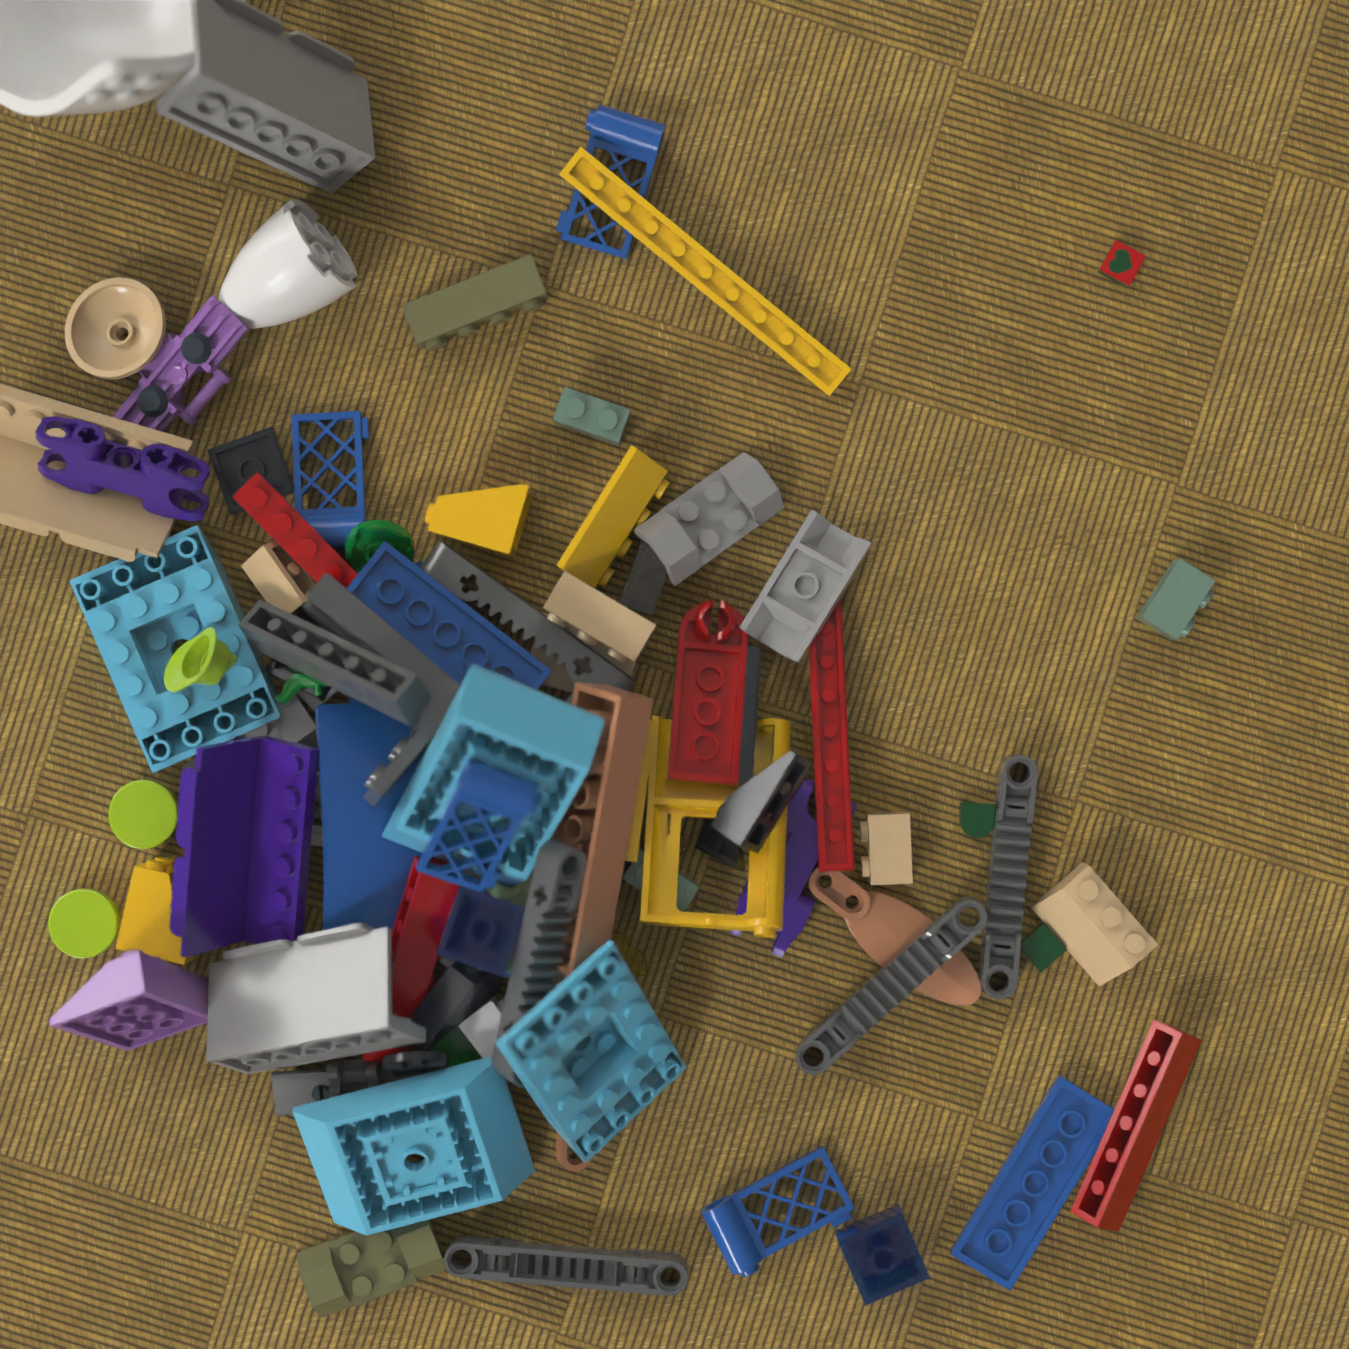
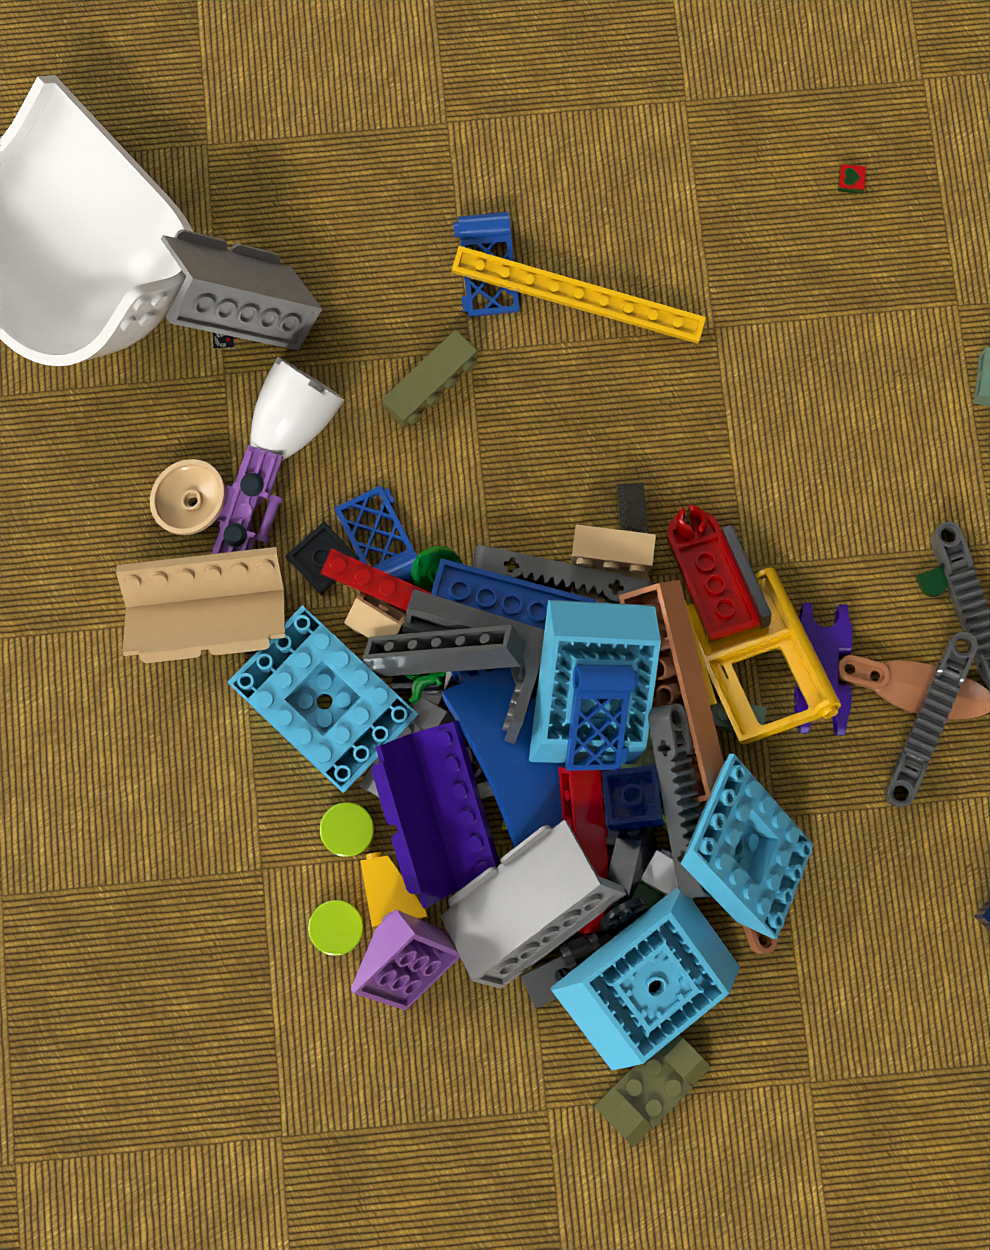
camera: 20 degrees left, 10 degrees down
(101, 463) = (215, 588): dark purple piece -> none
(199, 662) = (346, 694): lime piece -> none
(482, 518) = (500, 518): yellow slope -> none
(566, 1265) = (795, 1025): dark grey gear -> none
(592, 416) = (544, 421): sand green brick -> none
(613, 519) = (591, 478): yellow slope -> none
(711, 516) = (657, 452): light grey piece -> none
(720, 846) = (766, 672): black tile -> none
(740, 1239) = (902, 944): blue piece -> none
(758, 804) = (782, 628): slope -> none
(805, 587) = (742, 474): light grey piece -> none
(831, 747) = (806, 564): red tile -> none
(887, 848) = (882, 627): tan brick -> none

